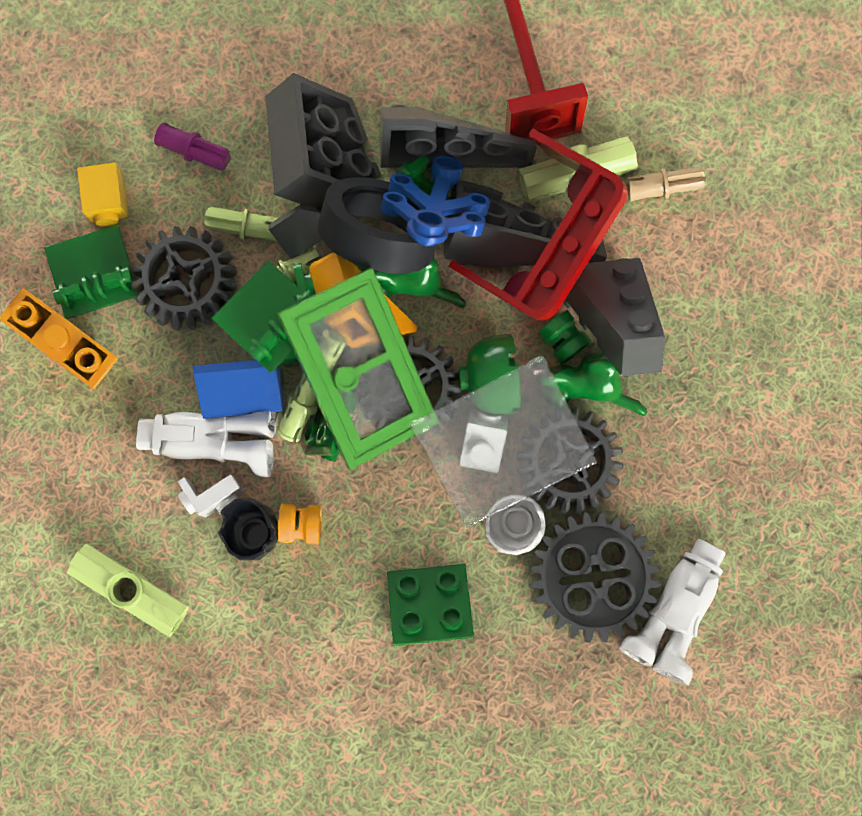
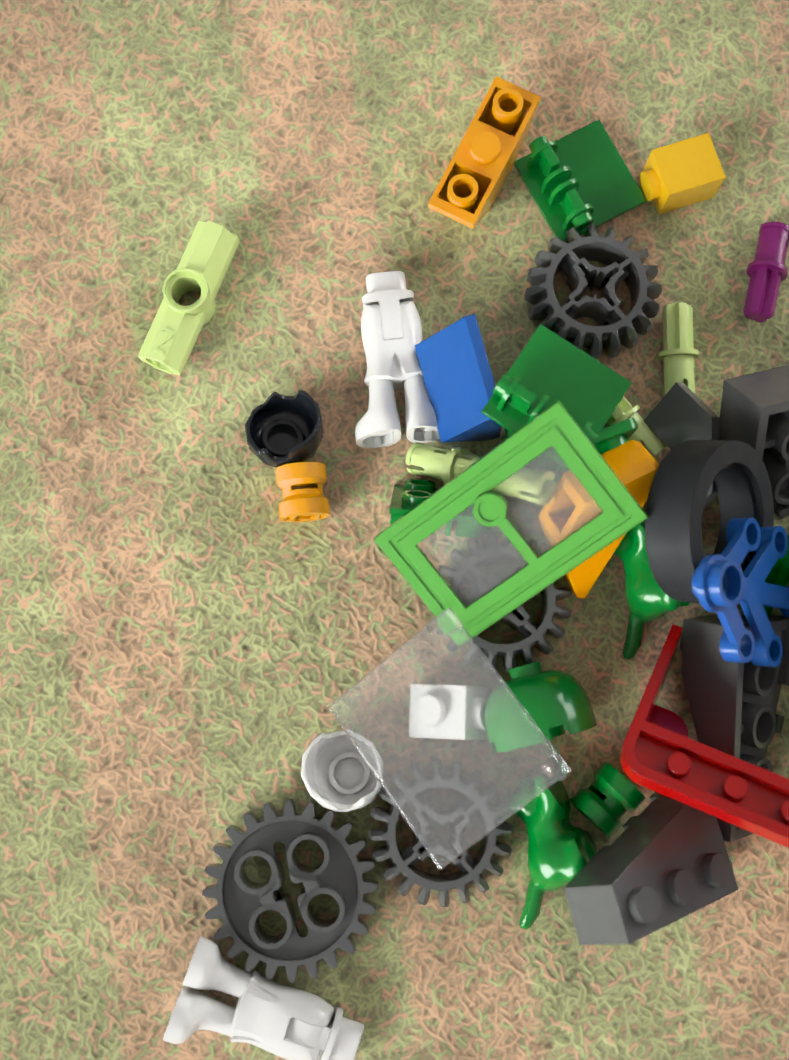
camera: 85 degrees right, 0 degrees up
(211, 499) = (316, 378): white bracket -> none
(429, 605) = (223, 675): green hinge -> none

